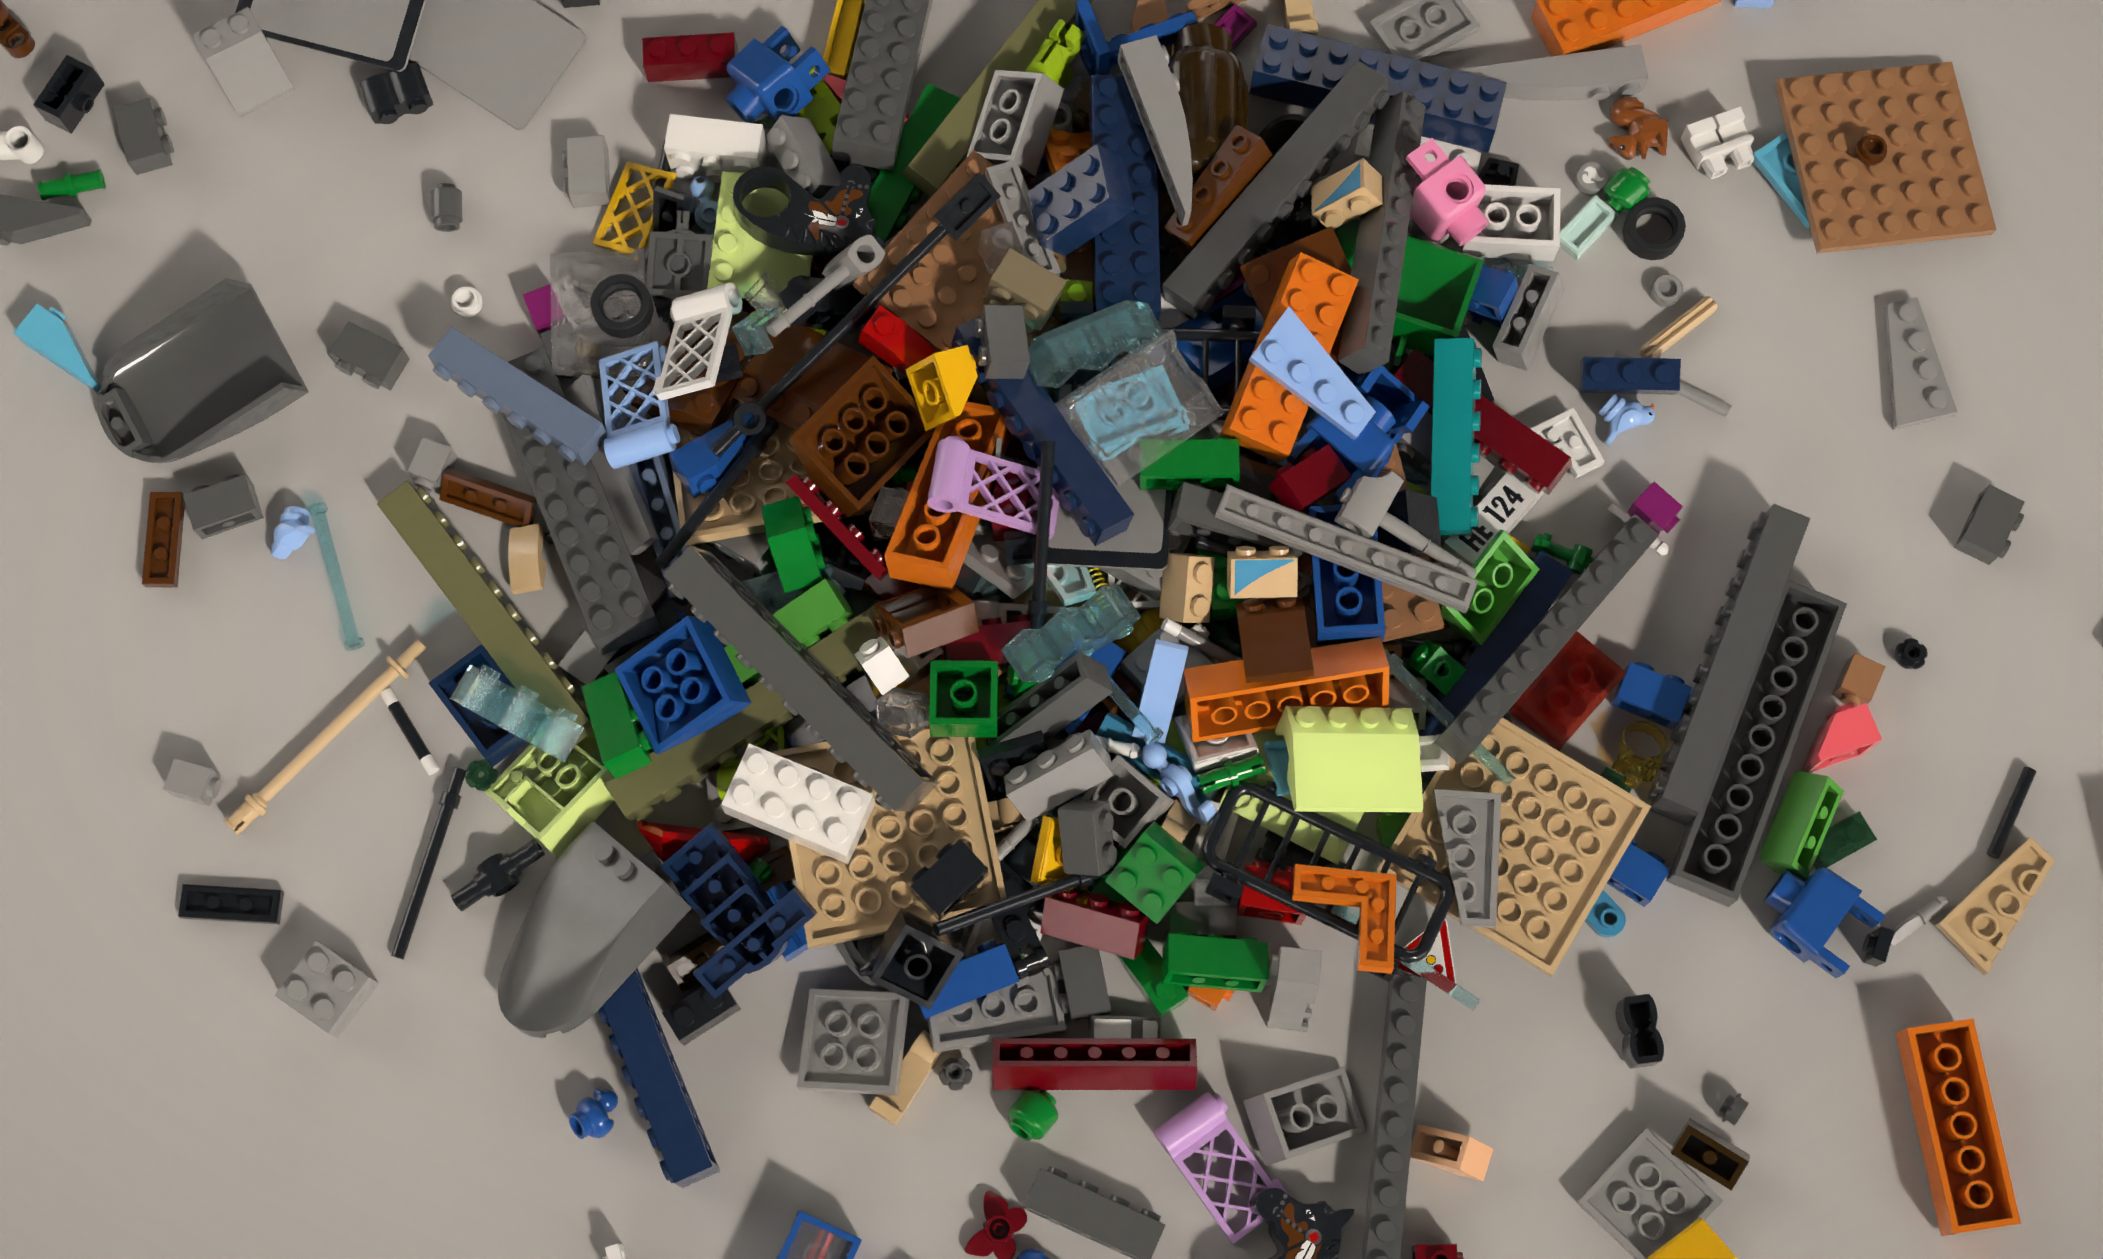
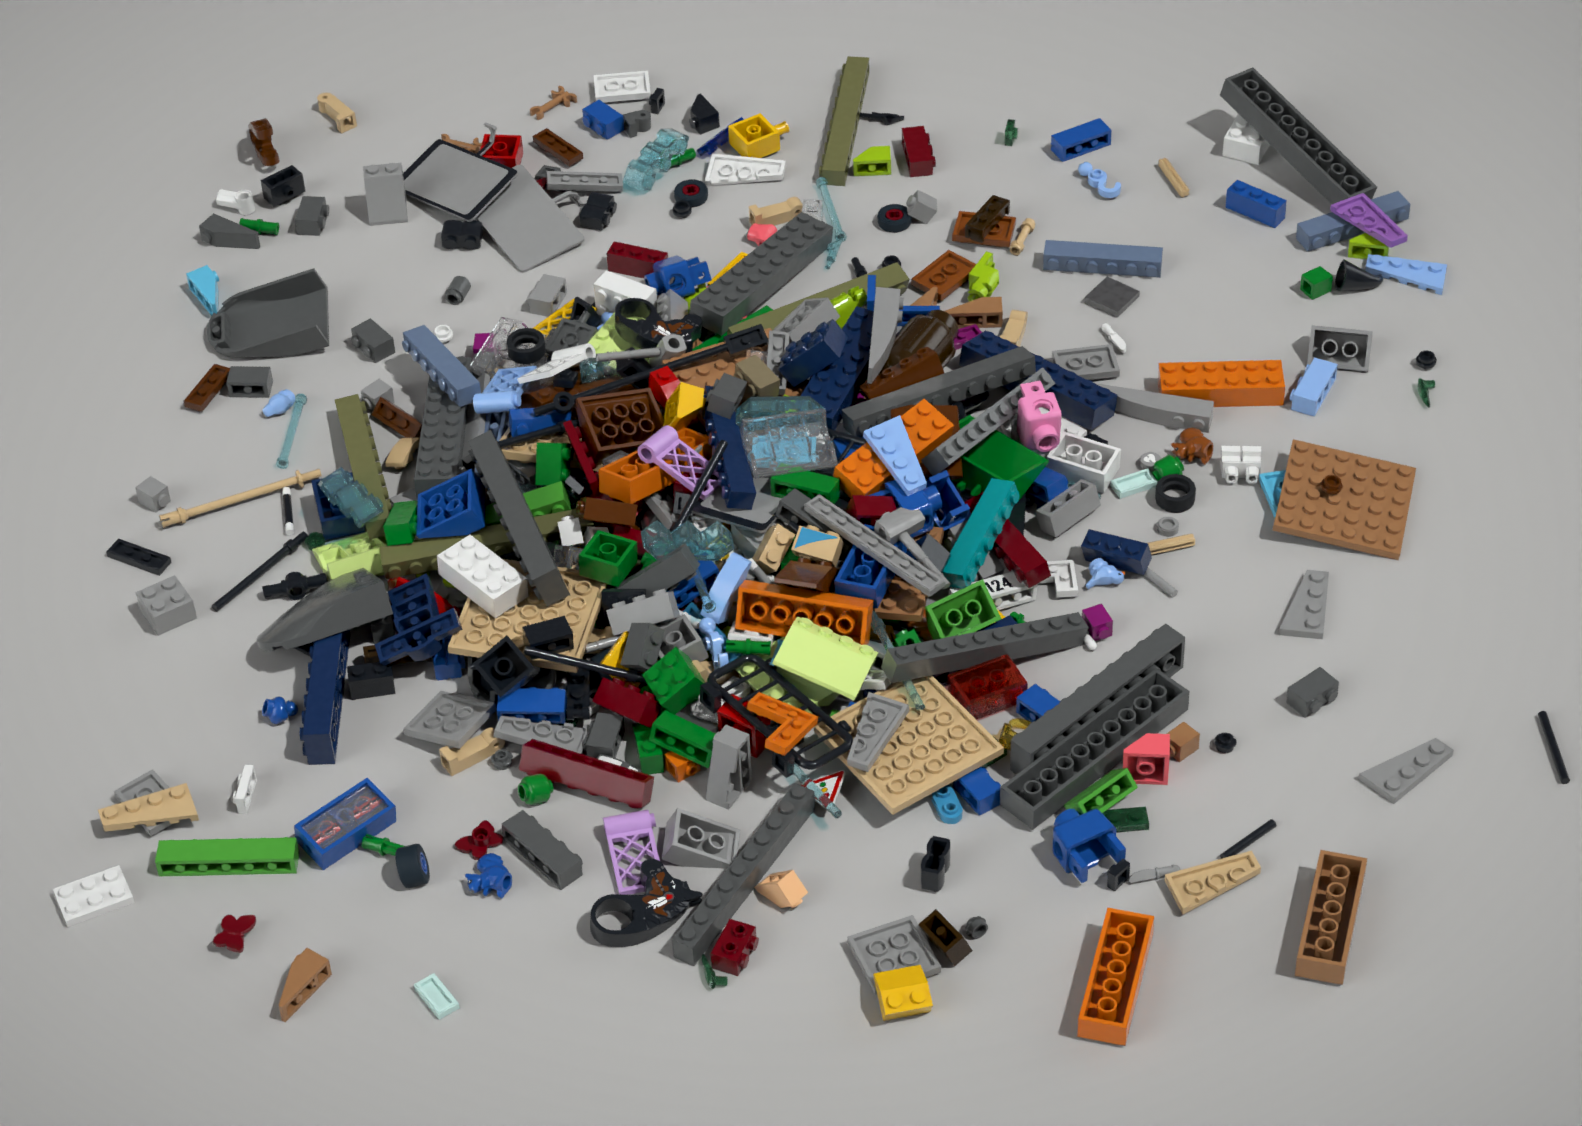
camera: 25 degrees right, 30 degrees down
(1347, 194) = (977, 399): tan brick -> none

